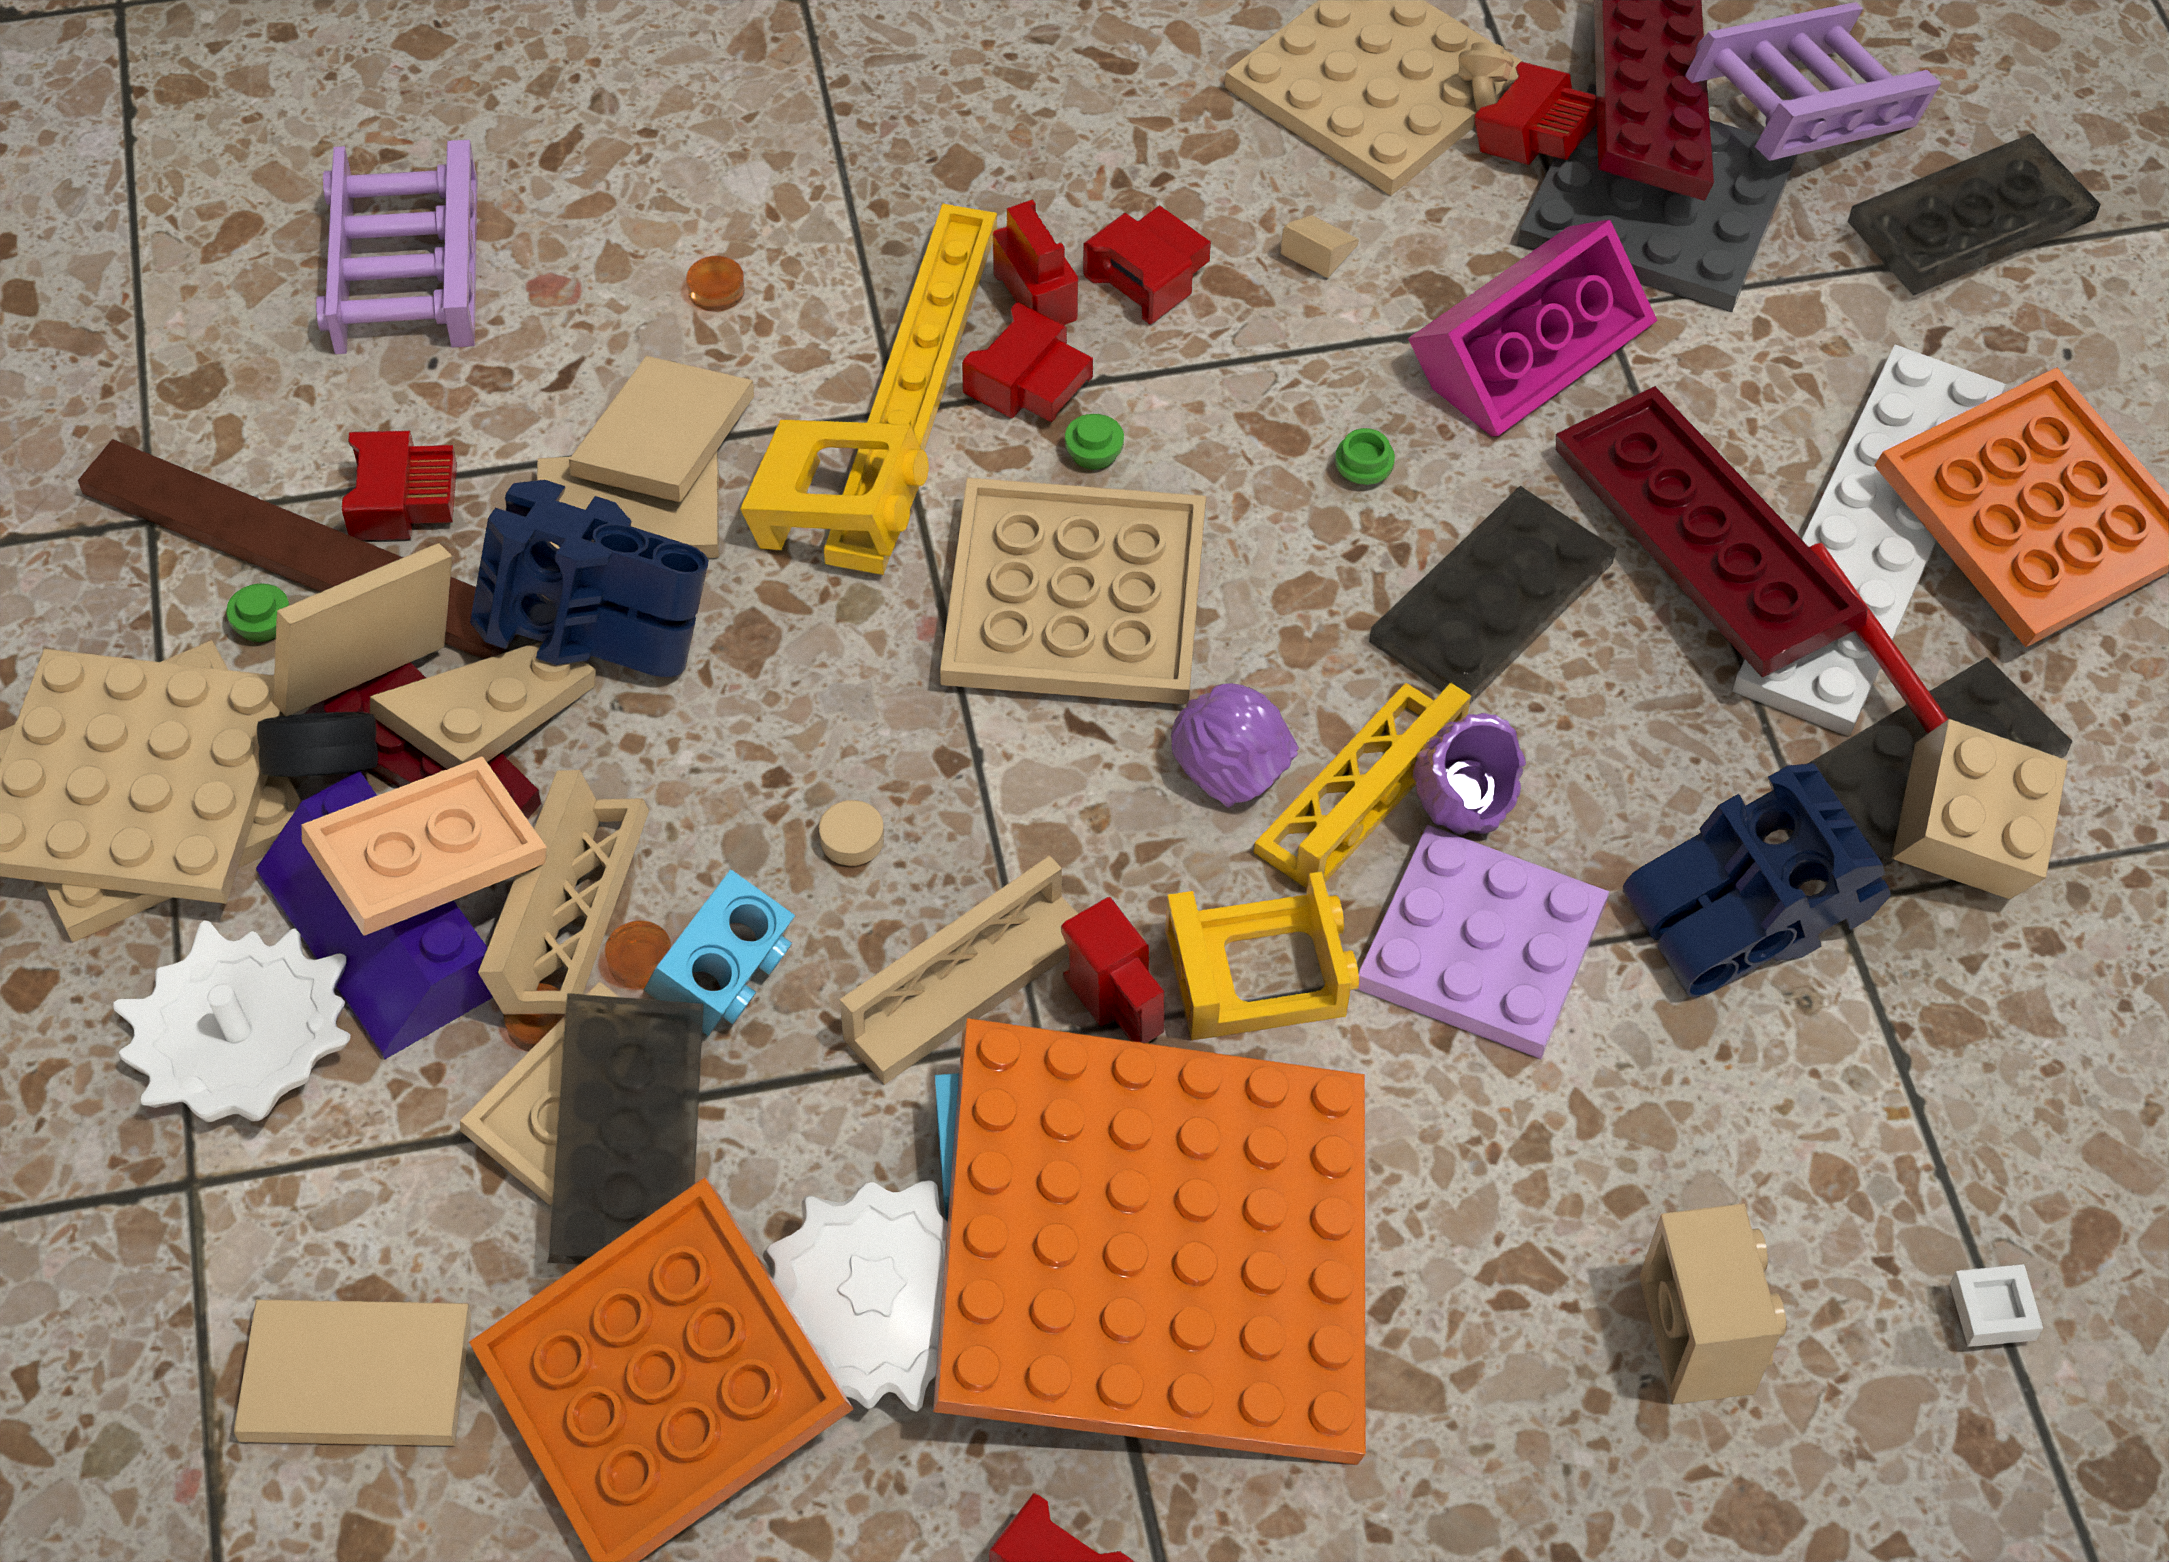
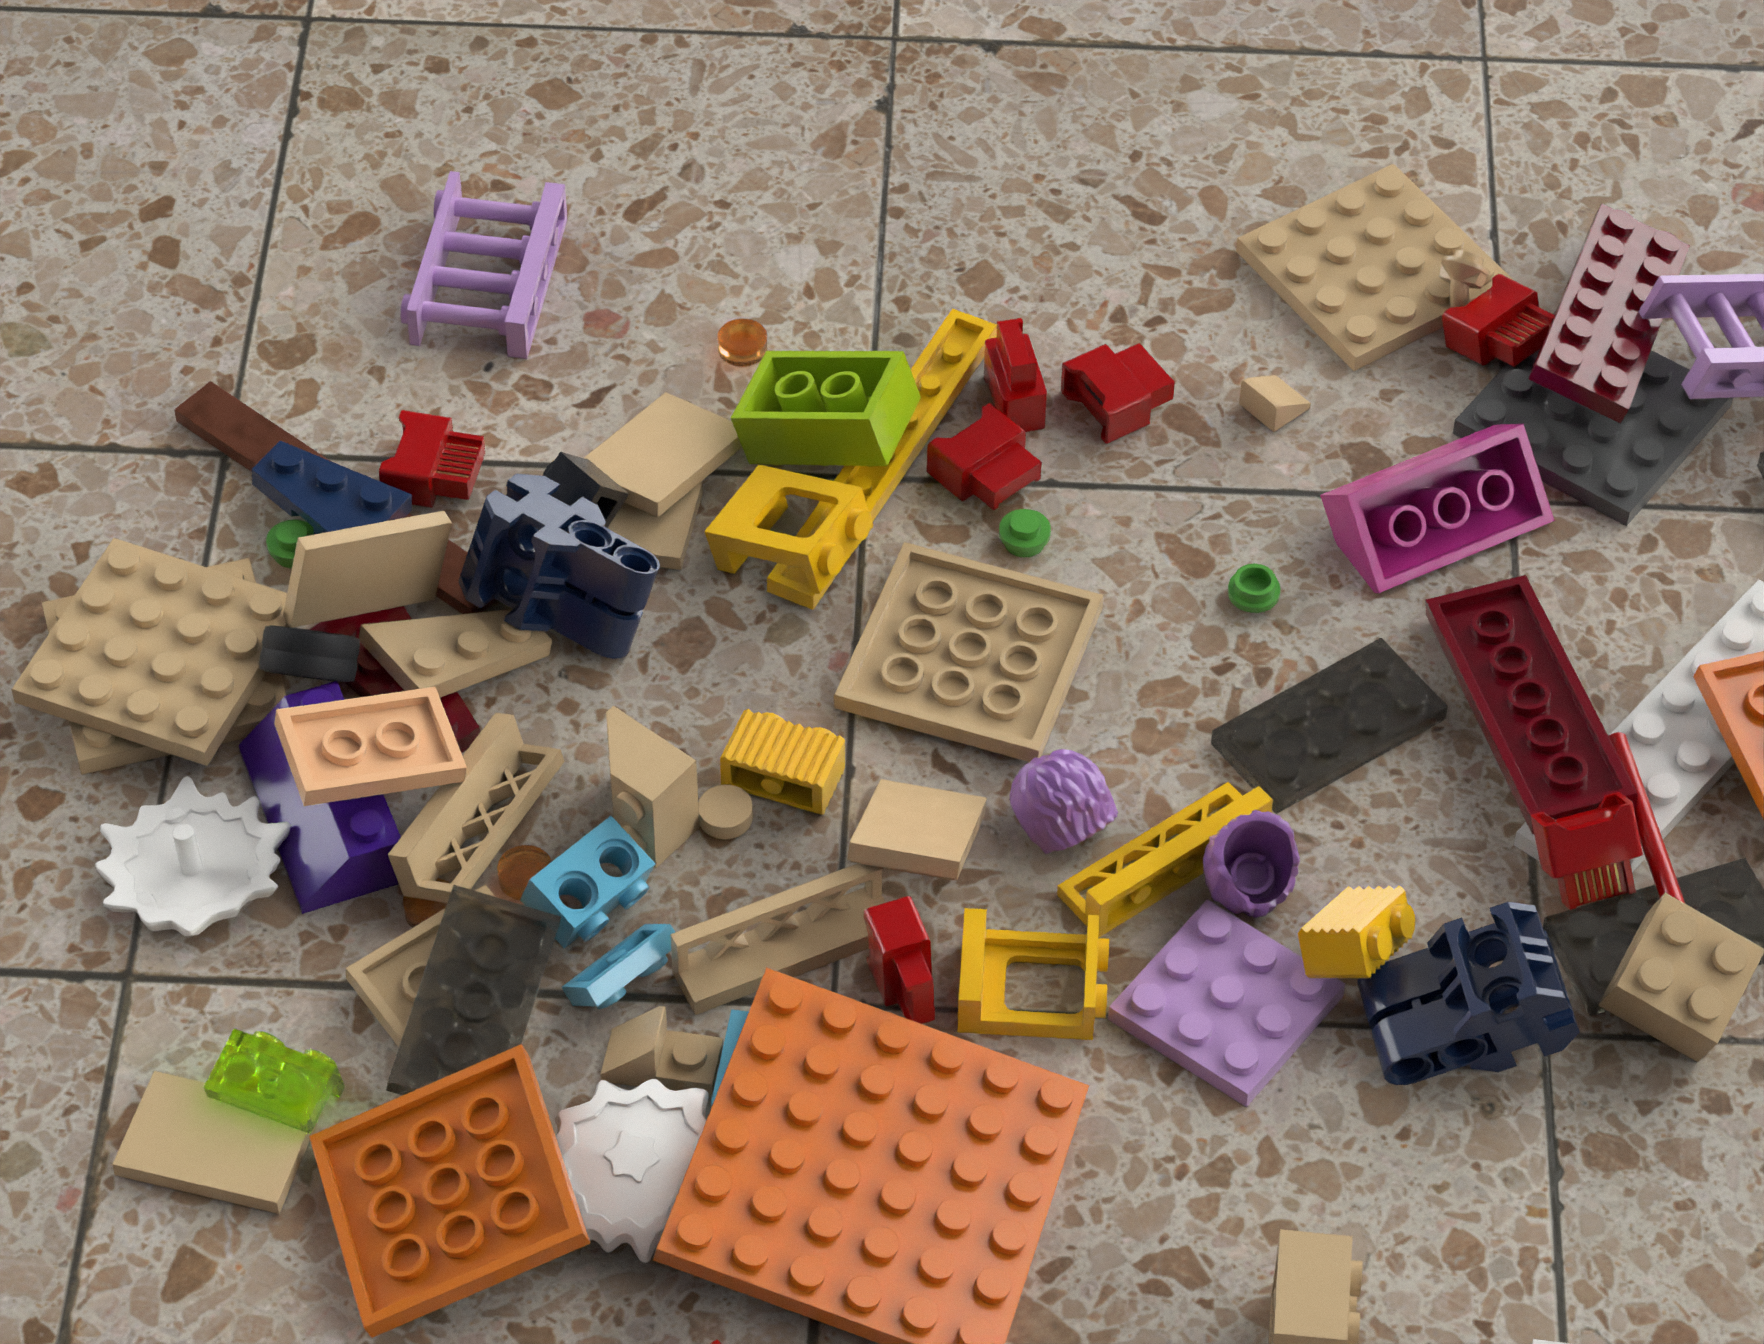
camera: 15 degrees right, 5 degrees down
(287, 546) = (326, 492): none -> dark blue wing
(407, 1280) = (273, 1079): none -> clear neon green bracket
(587, 477) = (582, 478): none -> black brick
(761, 822) = (651, 787): none -> tan slope
(778, 1054) = (635, 956): none -> medium azure plate
(839, 340) = (826, 408): none -> lime brick
(852, 1148) = (647, 1051): none -> tan slope
(903, 759) = (783, 761): none -> yellow brick
(1085, 812) = (917, 829): none -> tan tile
(1614, 832) = (1356, 933): none -> yellow brick
(1833, 682) = (1590, 850): none -> red piece

